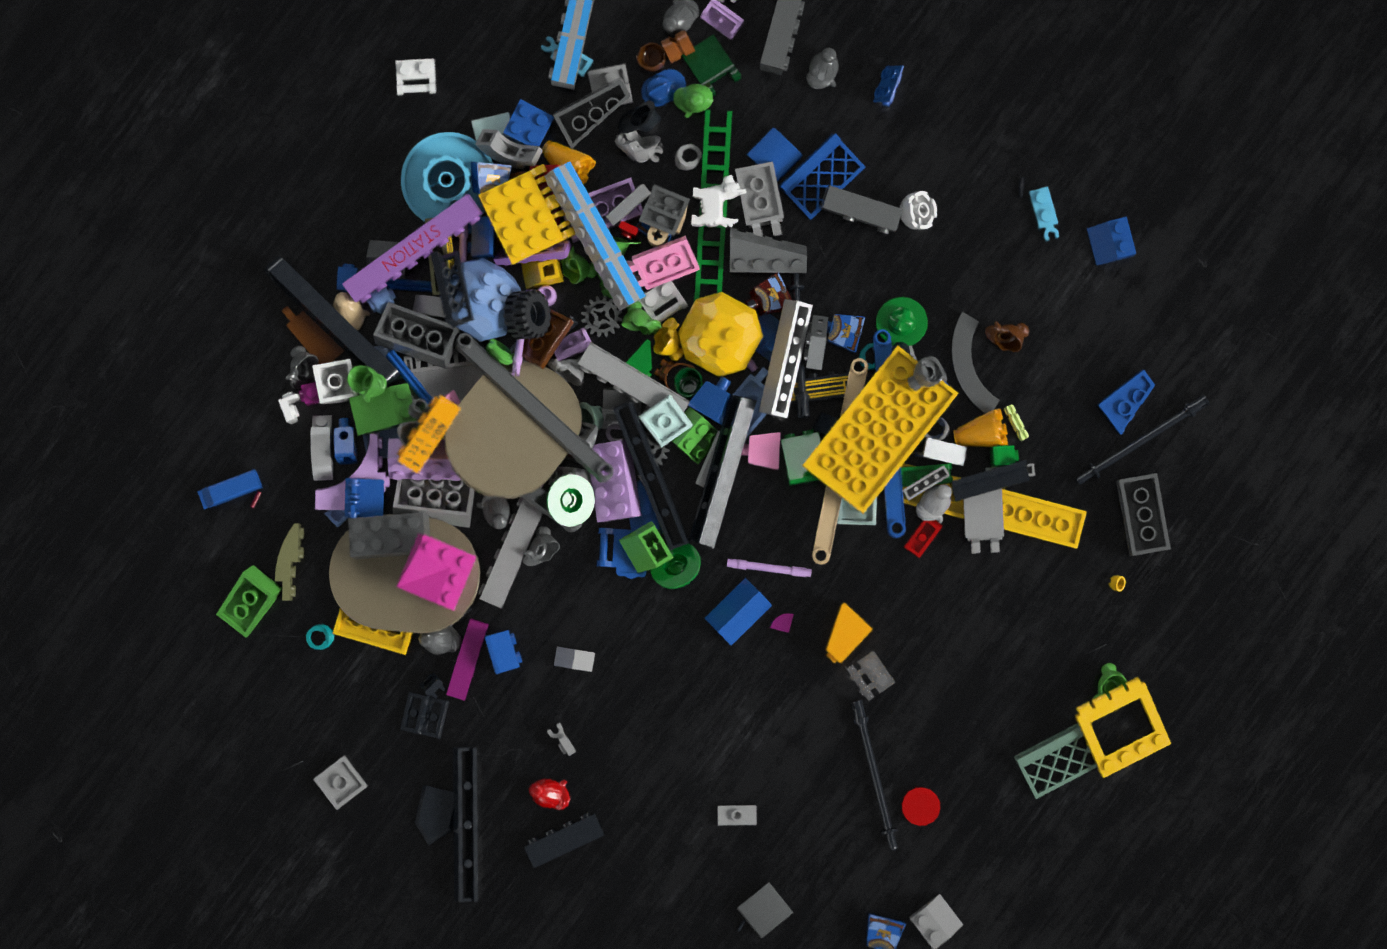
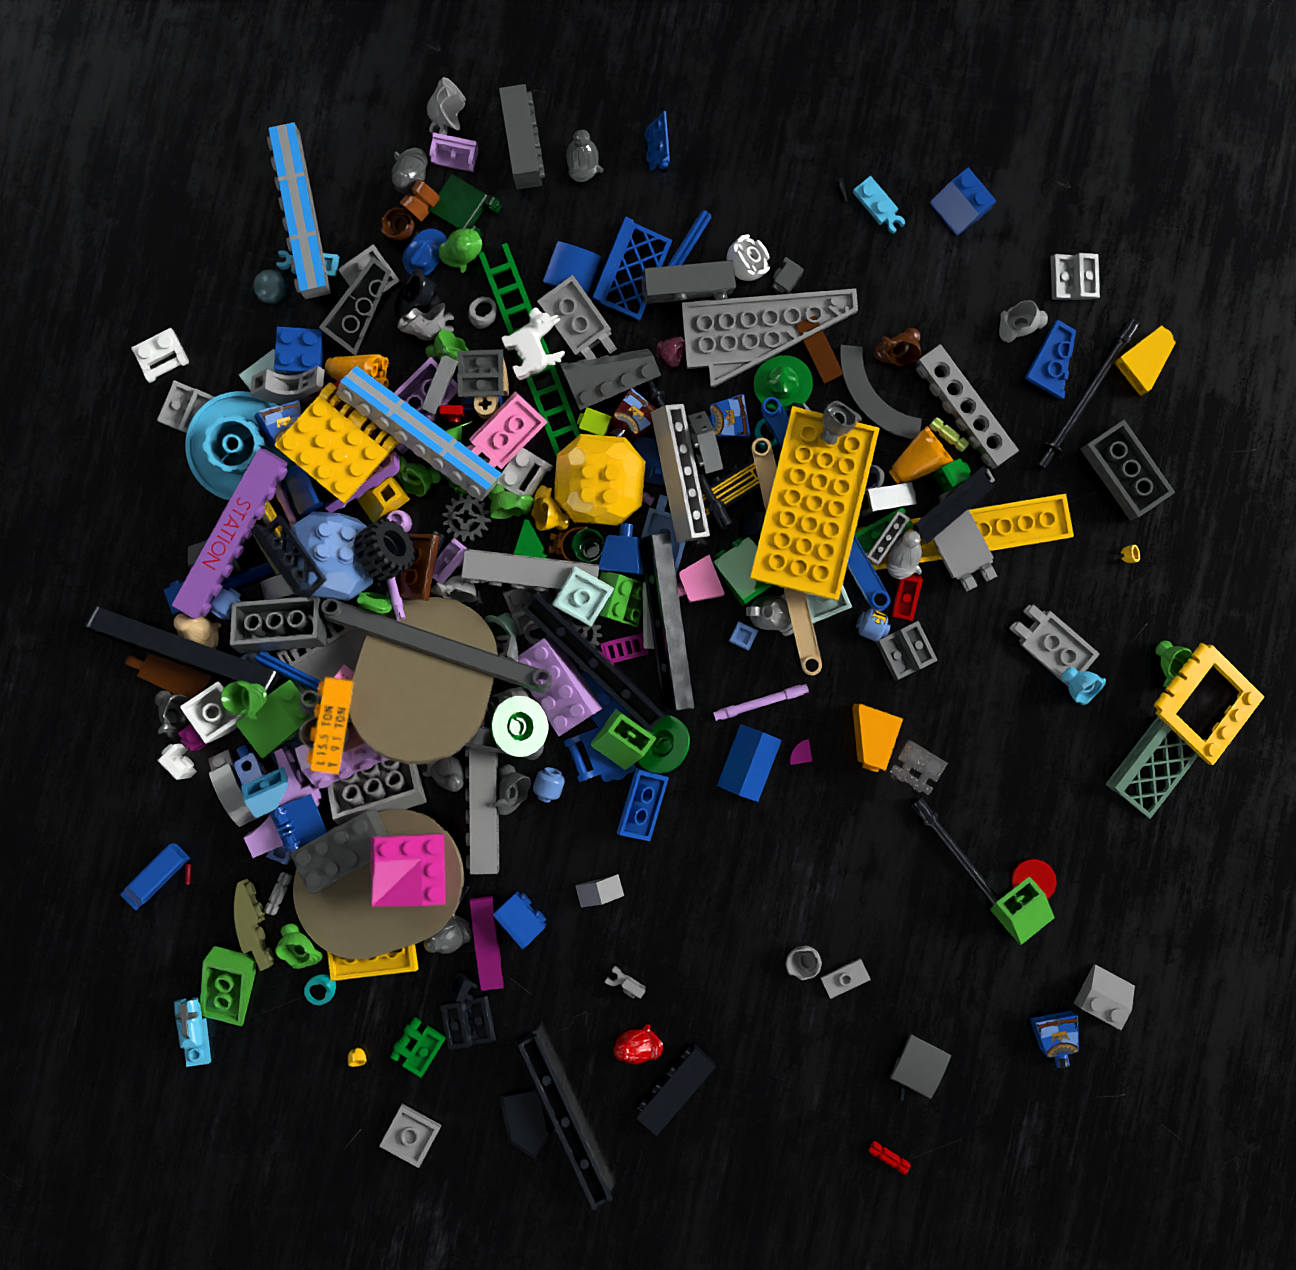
camera: 25 degrees left, 0 degrees up
(206, 624) = (192, 1032): none -> medium azure plate
(317, 596) = (296, 948): none -> bright green hair
(320, 546) = (278, 893): none -> light grey axle
(325, 703) = (356, 1057): none -> yellow hinge
(352, 462) = (265, 792): none -> dark azure slope
(380, 721) = (424, 1050): none -> green plate
(416, 126) = (182, 405): none -> light grey slope
(528, 60) = (270, 286): none -> clear light blue hair
(572, 557) = (548, 784): none -> medium blue head
(639, 606) = (642, 805): none -> blue slope
(646, 174) = (445, 345): none -> bright green hair
(674, 468) = (605, 649): none -> magenta slope
(709, 786) = (803, 962): none -> light grey hair
(736, 286) = (594, 422): none -> lime brick
(779, 509) = (743, 636): none -> medium blue tile
(808, 501) = (771, 614): none -> light grey helmet
(825, 256) = (672, 351): none -> clear pink brick
(877, 174) = (690, 239): none -> blue axle
(885, 546) = (873, 625): none -> medium blue head
(892, 267) = (746, 331): none -> light grey wing
(900, 822) = (1023, 910): none -> bright green slope
(903, 579) = (906, 650): none -> dark grey slope
(942, 238) = (787, 277): none -> dark grey brick
(943, 308) = (820, 352): none -> reddish brown tile
(1023, 628) = (1053, 642): none -> light grey tile
(1029, 669) = (1082, 684): none -> medium azure hair
(1034, 358) = (939, 359): none -> light grey brick
(1115, 357) = (1021, 320): none -> light grey hair
(1175, 341) = (1075, 277): none -> light grey slope
(1201, 432) = (1146, 359): none -> yellow slope

